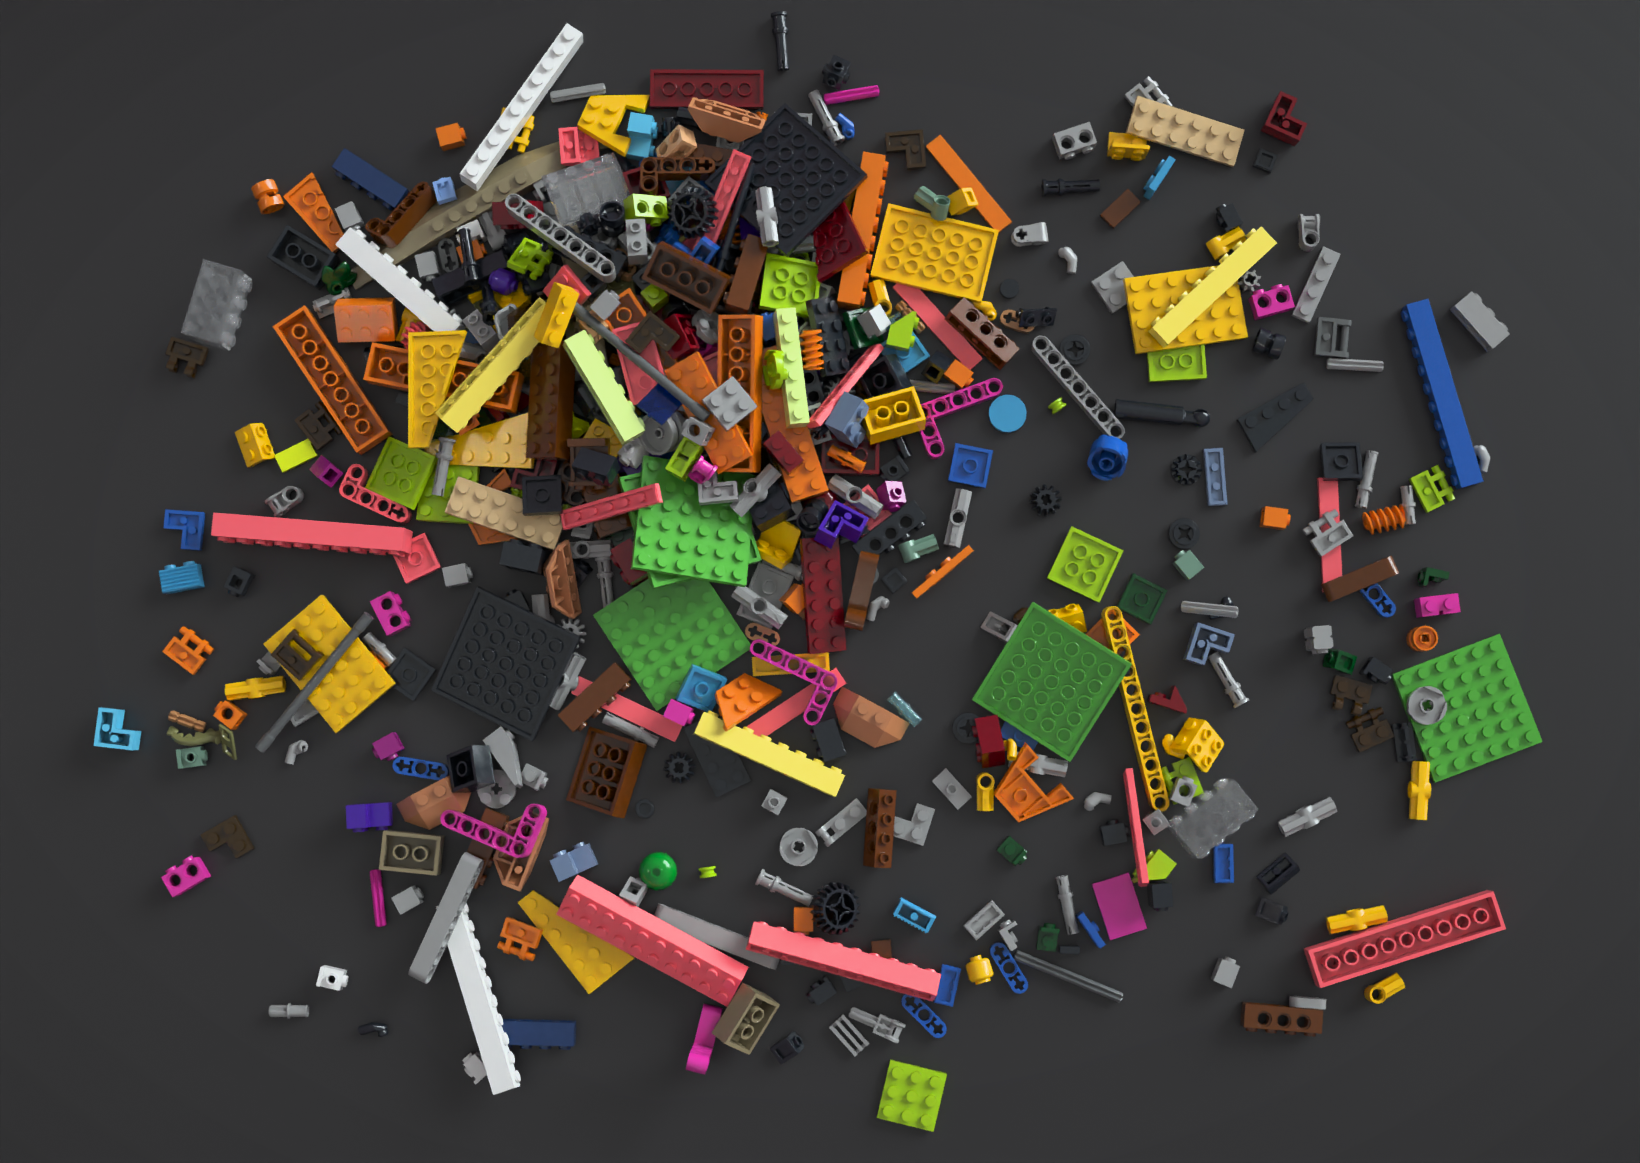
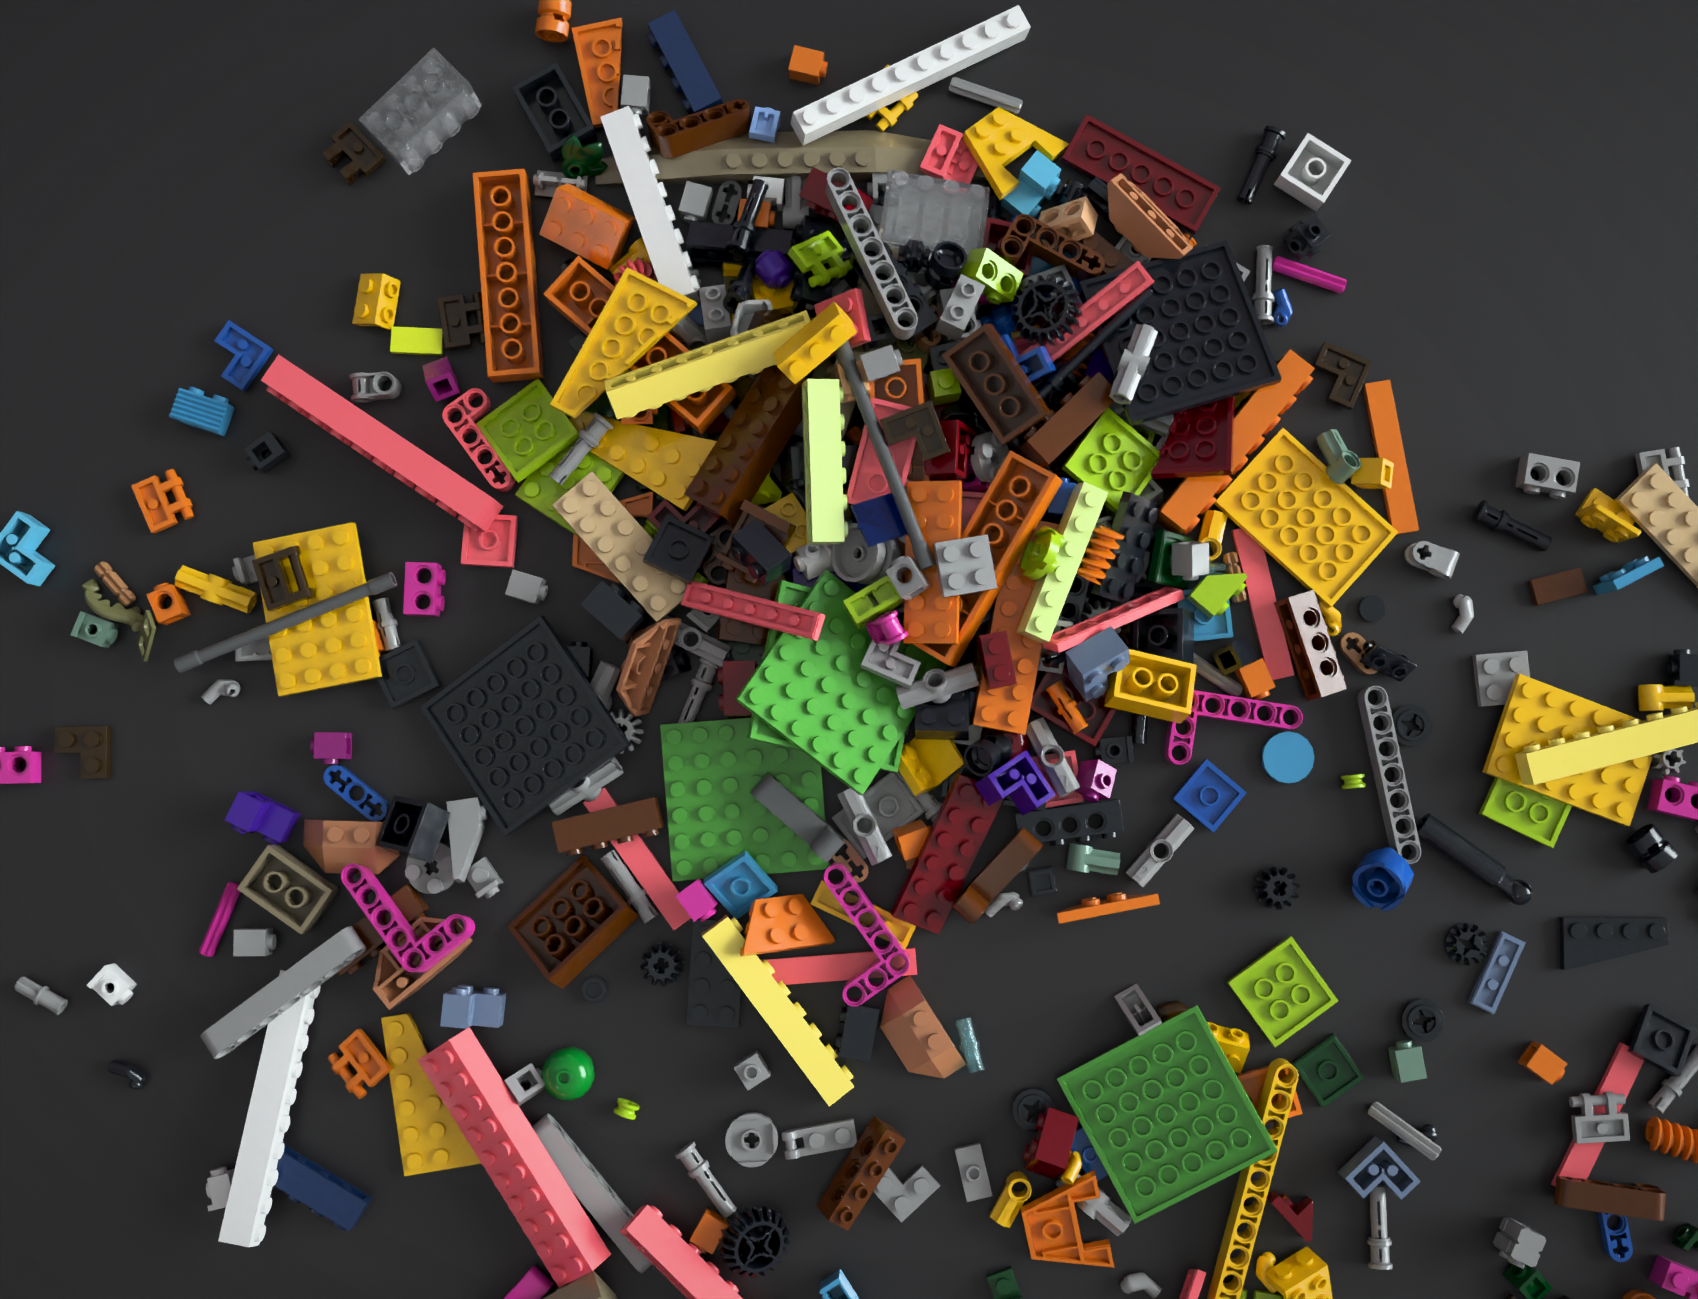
camera: 25 degrees right, 0 degrees up
(713, 623) = (798, 816): none -> dark grey beam
(816, 27) = (1312, 172): none -> white brick

